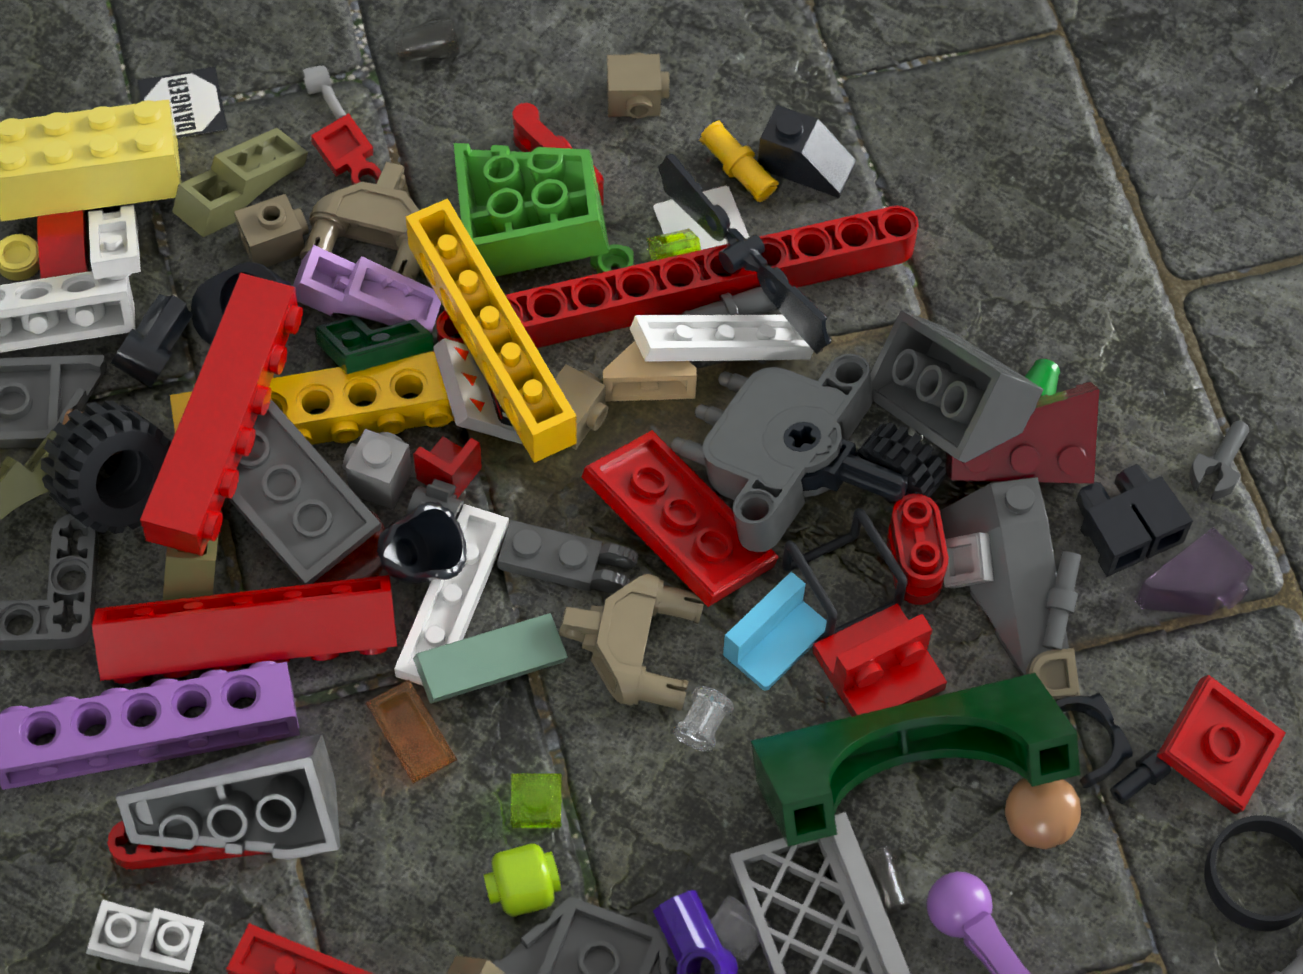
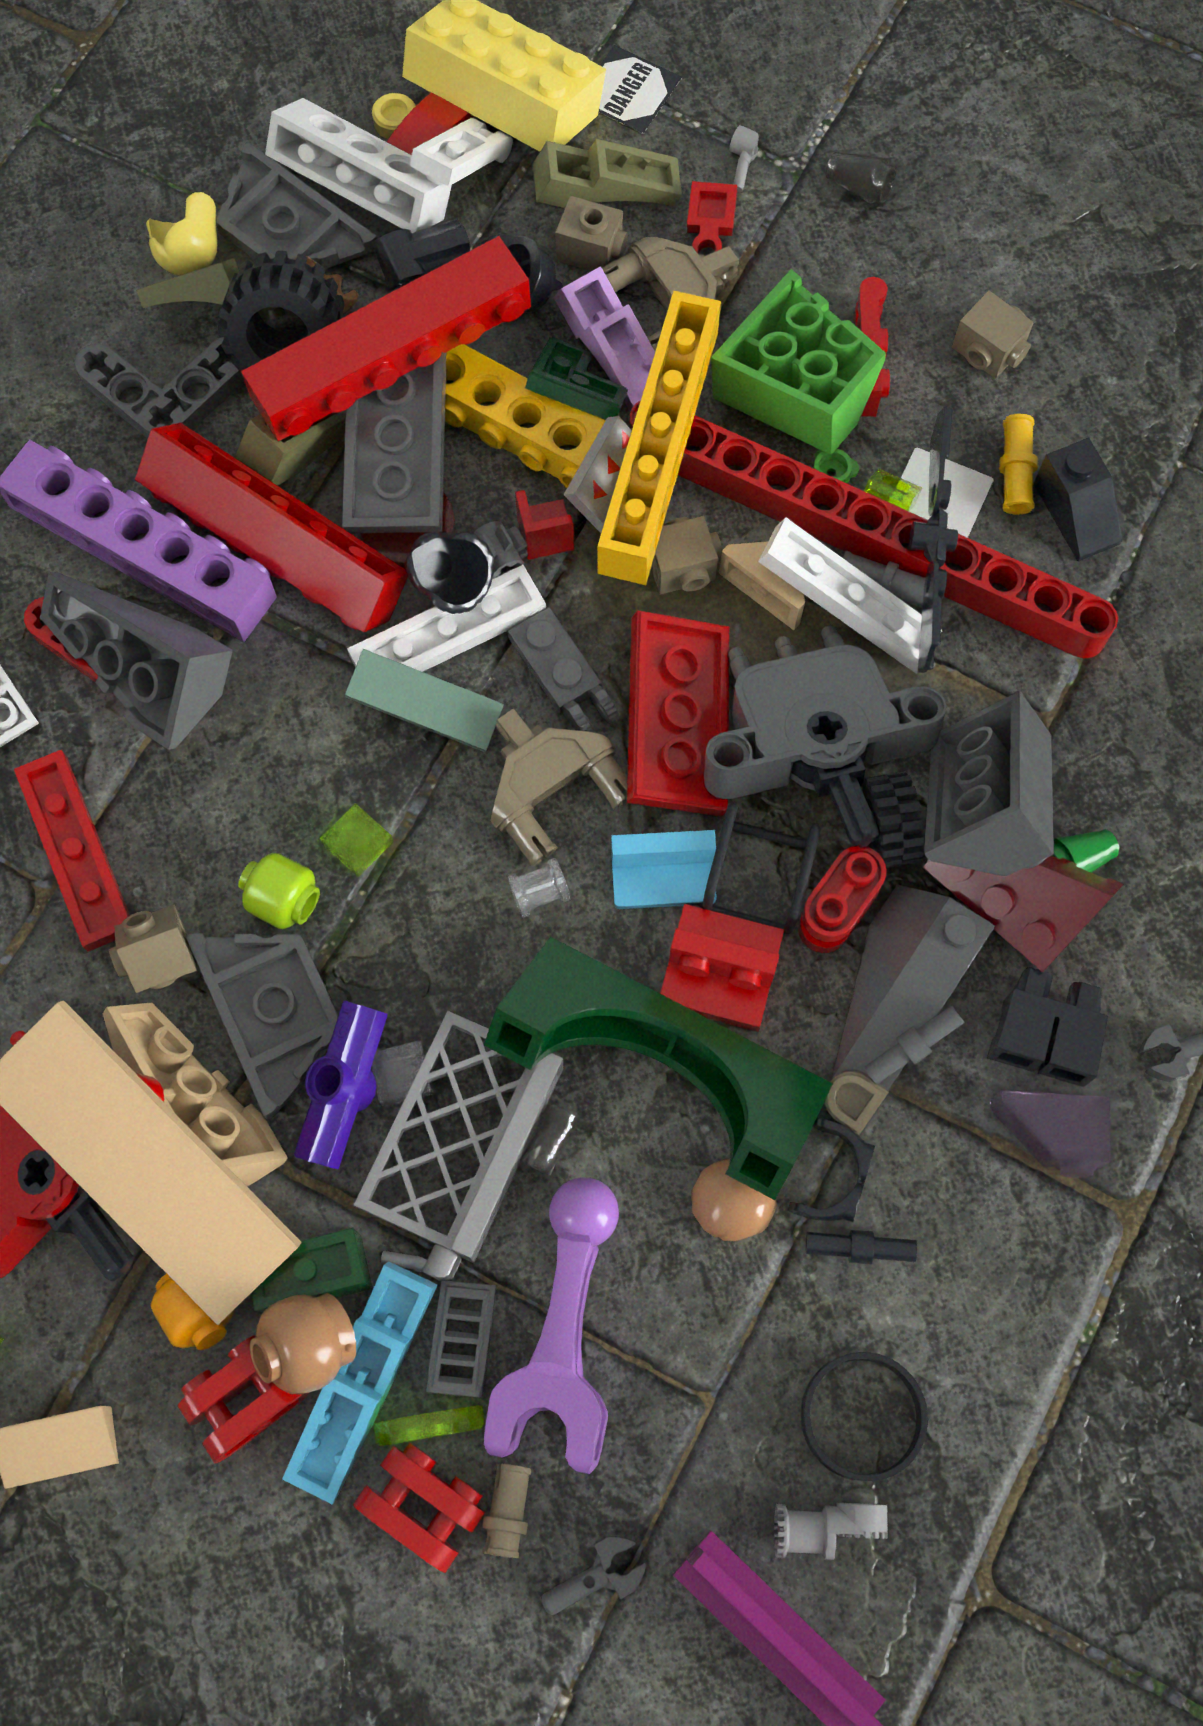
camera: 45 degrees right, 10 degrees up
(378, 467) = (487, 483): light grey brick -> none
(411, 731) = (317, 707): clear orange tile -> none
(968, 560) = (873, 943): light grey tile -> none
(1221, 744) = (935, 1281): red tile -> none

